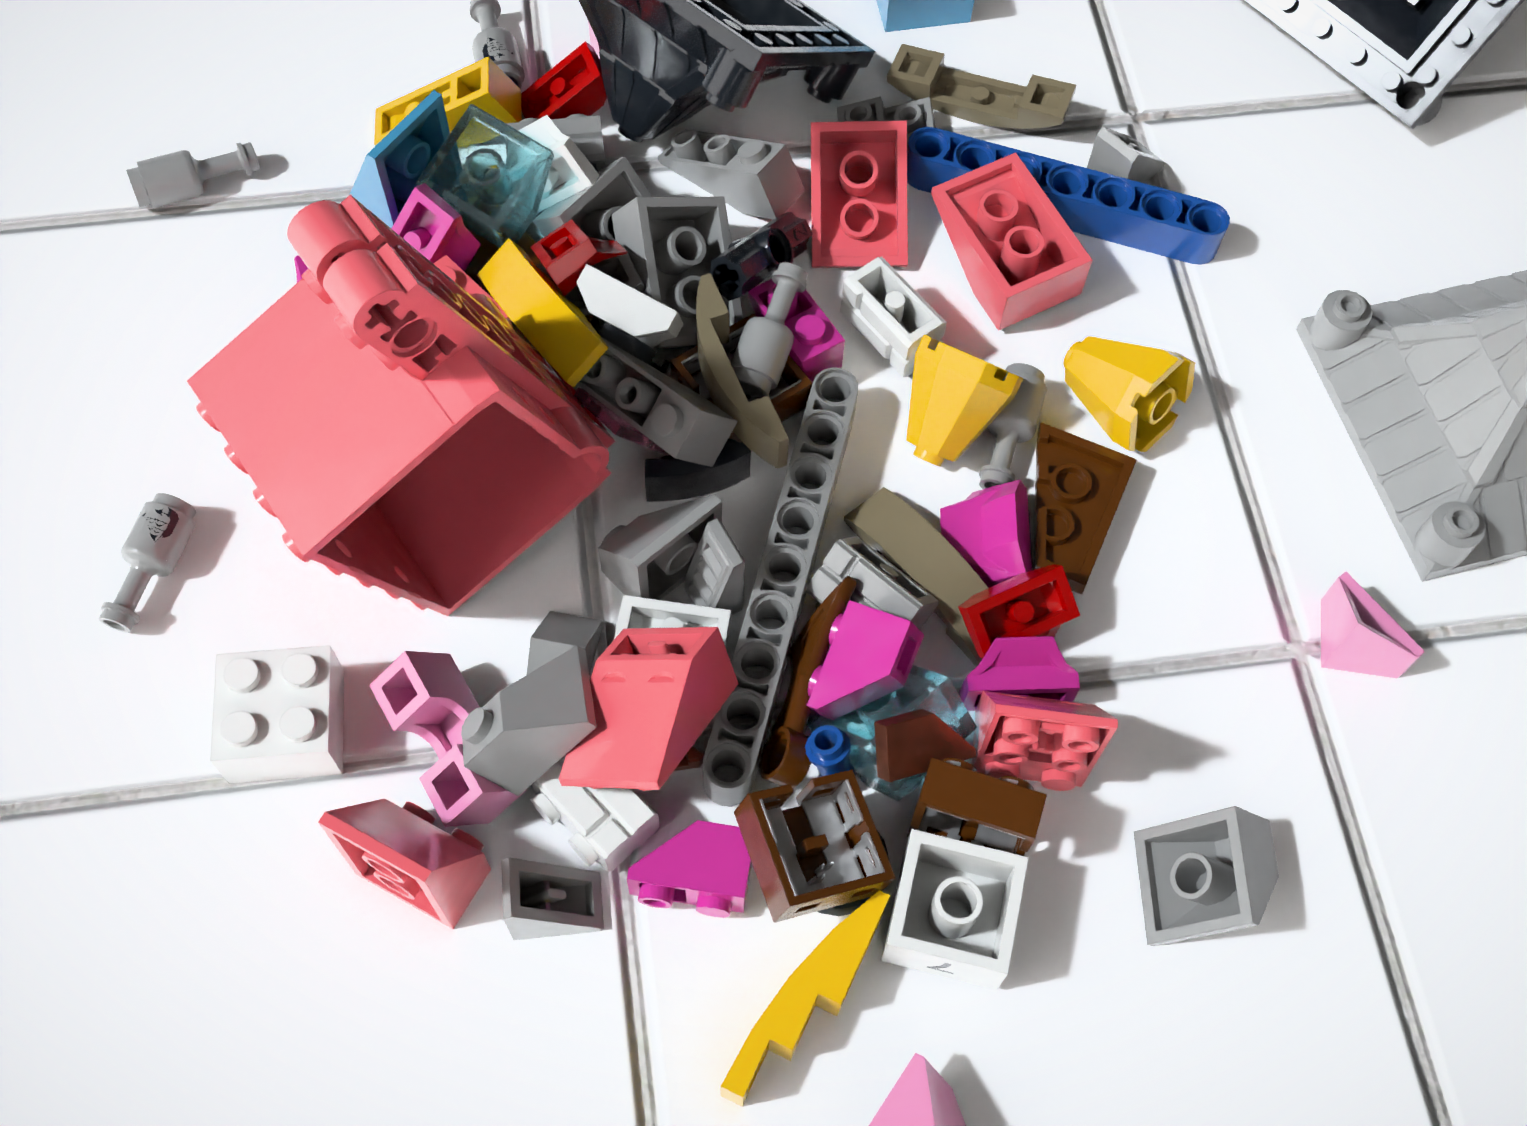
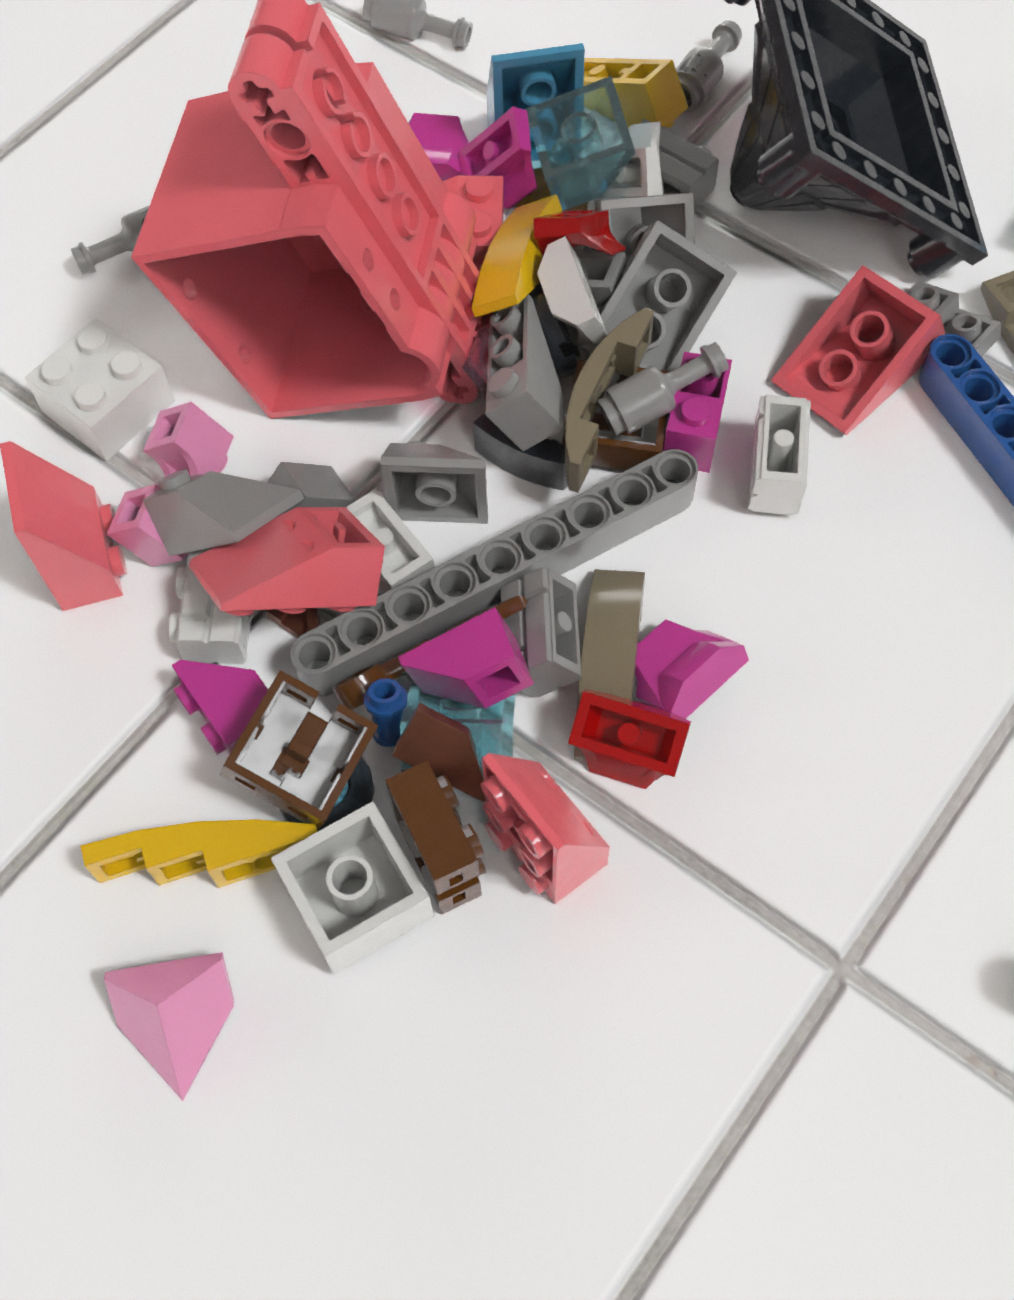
camera: 50 degrees right, 0 degrees up
(550, 899) = (121, 637): light grey slope -> none
(567, 88) = (714, 126): red slope -> none
(716, 571) = (454, 524): light grey slope -> none
(748, 172) = (785, 271): light grey slope -> none
(759, 255) = (736, 334): black piece -> none
(953, 400) = (757, 545): yellow cone -> none
(1011, 241) = (937, 470): coral slope -> none
(1014, 424) = (796, 602): light grey piece -> none
(1021, 668) = (587, 777): dark pink slope -> none
(1075, 501) = (778, 703): reddish brown wing -> none
(1129, 388) = (914, 657): yellow cone -> none
(1205, 874) = (565, 1045): light grey slope -> none
(1361, 634) = (897, 1000): bright pink slope -> none

